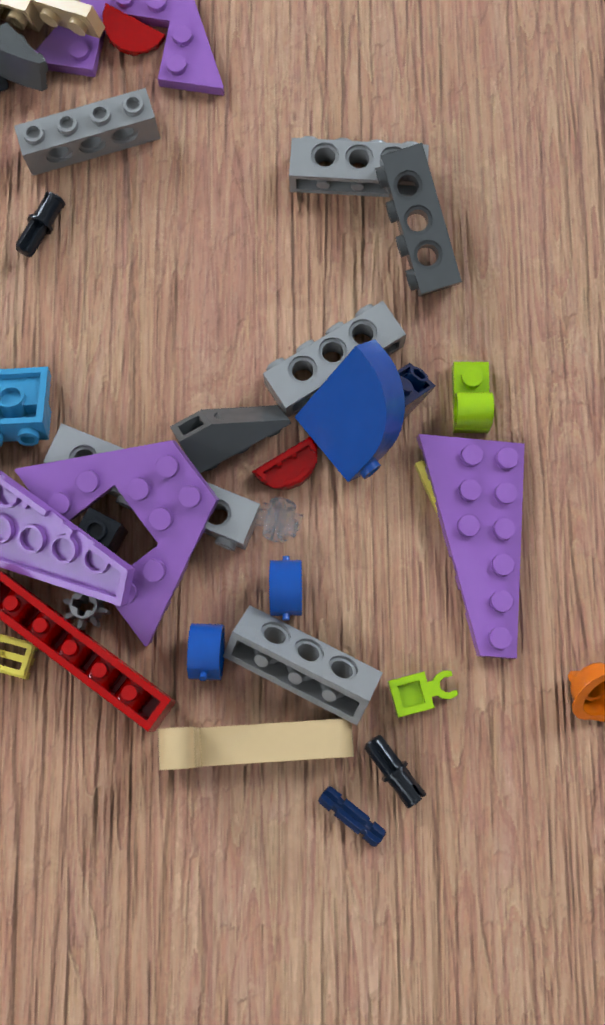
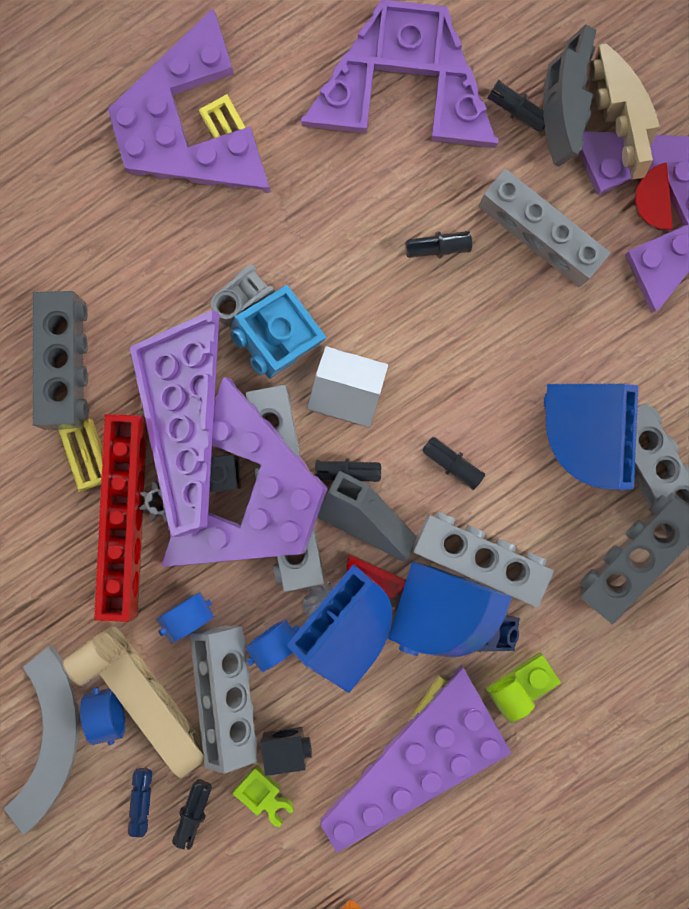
camera: 55 degrees right, 10 degrees up
(105, 379) = (347, 386): none -> light grey slope
(189, 405) = (359, 470): none -> black axle
(234, 331) = (453, 463): none -> black axle
(244, 859) = (58, 743): none -> light grey tile
(245, 791) = (102, 717): none -> blue piece
(283, 191) = (594, 431): none -> blue brick
(314, 508) = (345, 630): none -> blue brick
(391, 642) = (285, 751): none -> black brick

